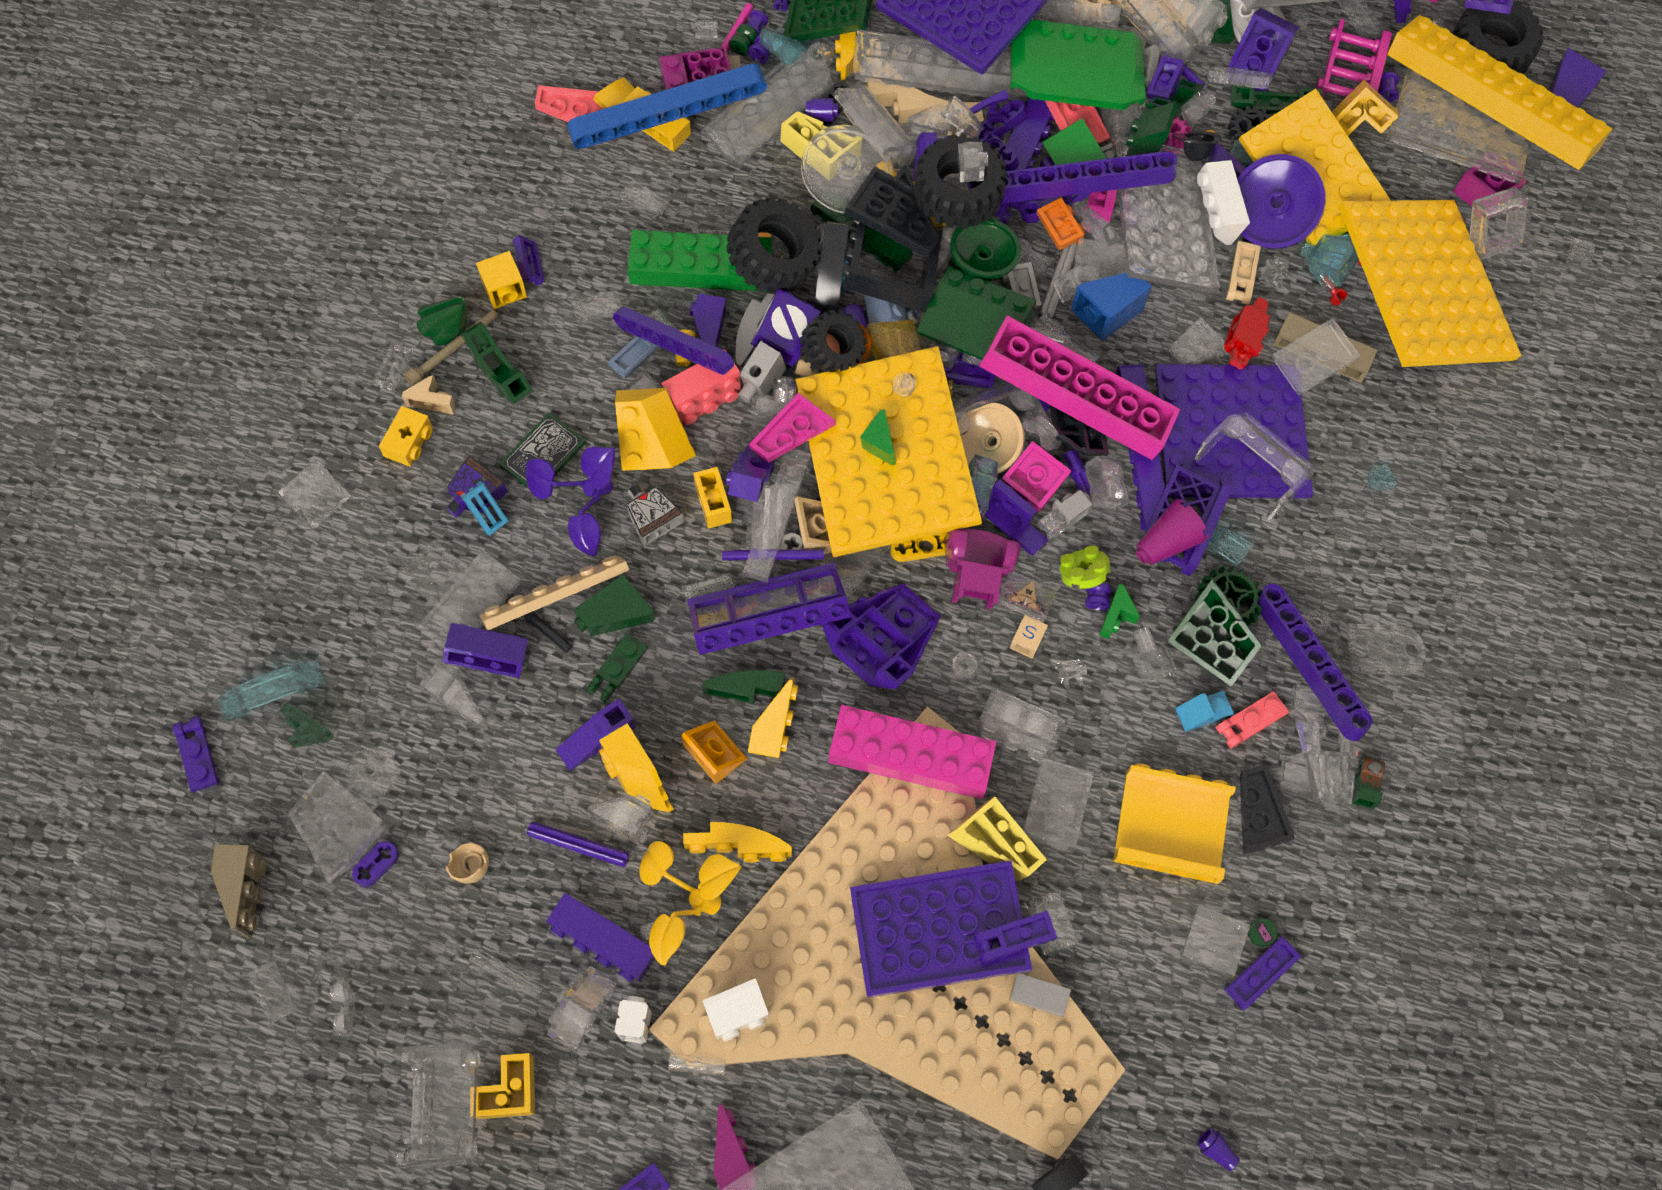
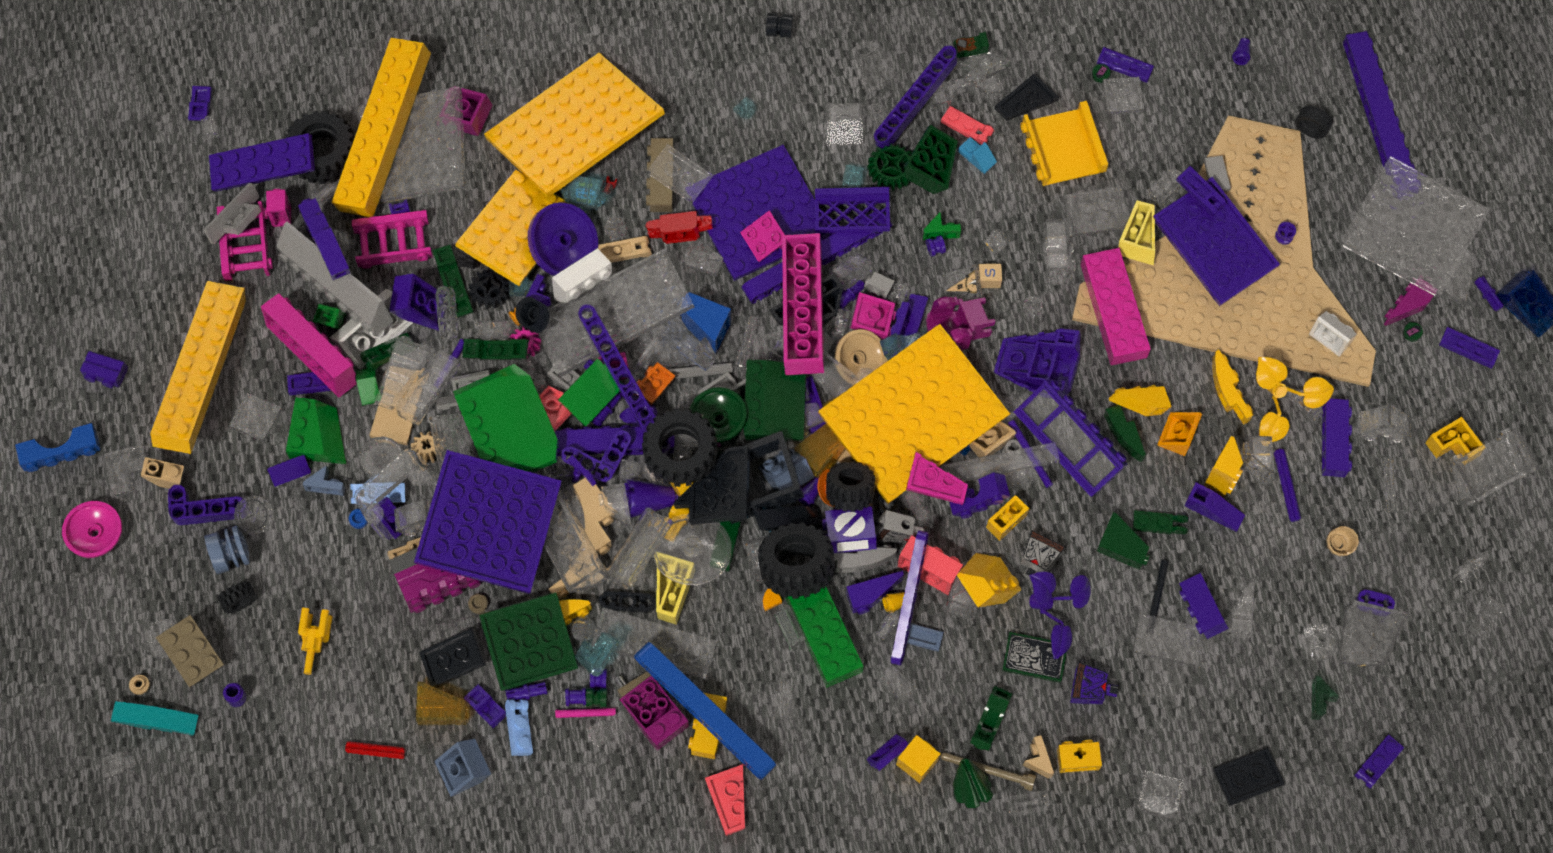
camera: 115 degrees left, 0 degrees up
(237, 880) = (1437, 674): dark tan slope -> none
(270, 687) = (1310, 738): clear light blue slope -> none
(274, 602) = (1248, 776): none -> black tile
(473, 493) = (1103, 669): dark azure tile -> none
(545, 595) = (1136, 585): tan plate -> none
(613, 93) = (703, 764): yellow slope -> none
(633, 1020) = (1374, 389): white brick -> none
(678, 1063) = (1377, 357): clear pin -> none
(690, 1137) = (1412, 332): none -> dark green tile
(707, 586) = (1071, 491): tile -> none
(784, 389) = (899, 502): clear beam -> none
(822, 109) = (639, 599): dark purple brick -> none
(877, 438) = (916, 413): green slope -> none
(904, 384) = (866, 414): clear plate -> none
(913, 1031) = (1289, 232): none -> dark purple wheel
(962, 118) = (608, 482): clear slope -> none
(971, 161) = (675, 432): clear brick -> none
(1073, 567) = (932, 259): lime plate -> none
(1149, 653) = (958, 199): clear piece -> none
(1150, 130) = (550, 343): dark green slope -> none
(1166, 78) = (481, 360): dark purple slope -> none
(1171, 534) = (881, 207): magenta cone -> none
(1195, 409) = (763, 236): none -> dark pink hinge
(1293, 467) = (764, 195): clear windscreen -> none
(1312, 572) = (844, 124): none -> clear slope
(1362, 105) = (440, 215): yellow brick -> none
(1486, 563) = (779, 25): none -> black wheel
(1509, 201) = (500, 92): clear window -> none
(1575, 78) = (338, 86): dark purple slope -> none

